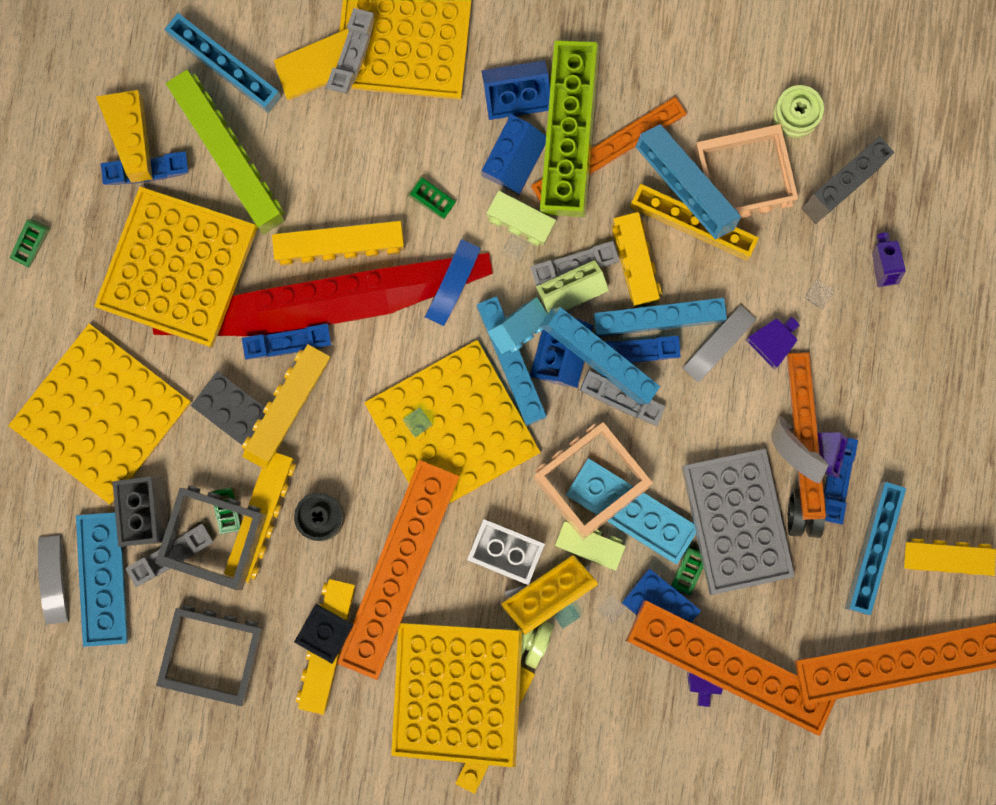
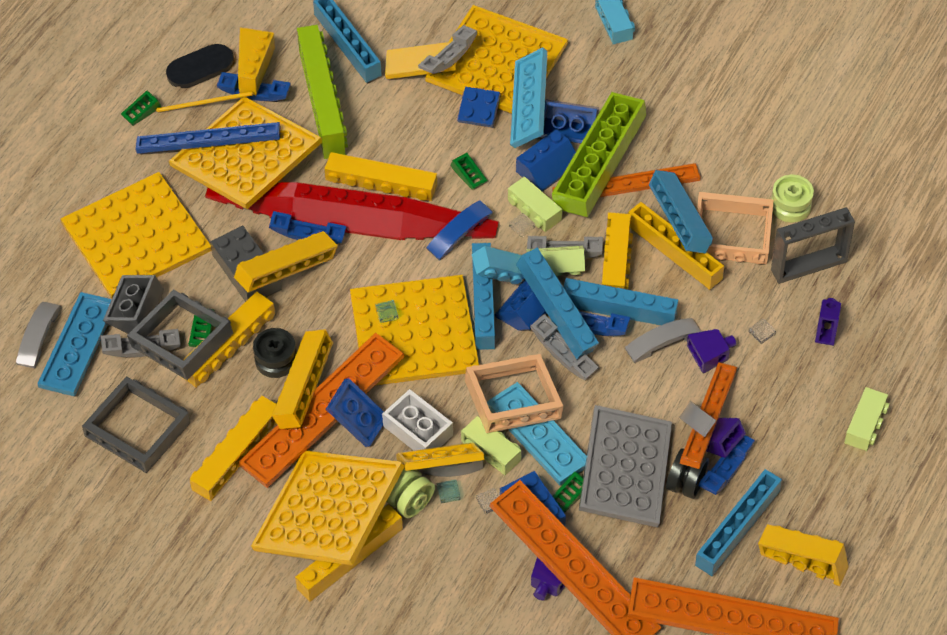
camera: 20 degrees right, 30 degrees down
(69, 157) = (199, 65): none -> black tile
(109, 202) = (206, 101): none -> yellow axle
(126, 262) = (208, 137): none -> blue tile
(324, 633) = (238, 430): black tile -> none
(364, 544) = (302, 379): none -> yellow brick
(410, 106) = (479, 107): none -> blue plate
(438, 566) = (356, 412): none -> blue plate
(465, 82) = (529, 98): none -> medium azure plate
(964, 370) = (867, 419): none -> yellowish green brick

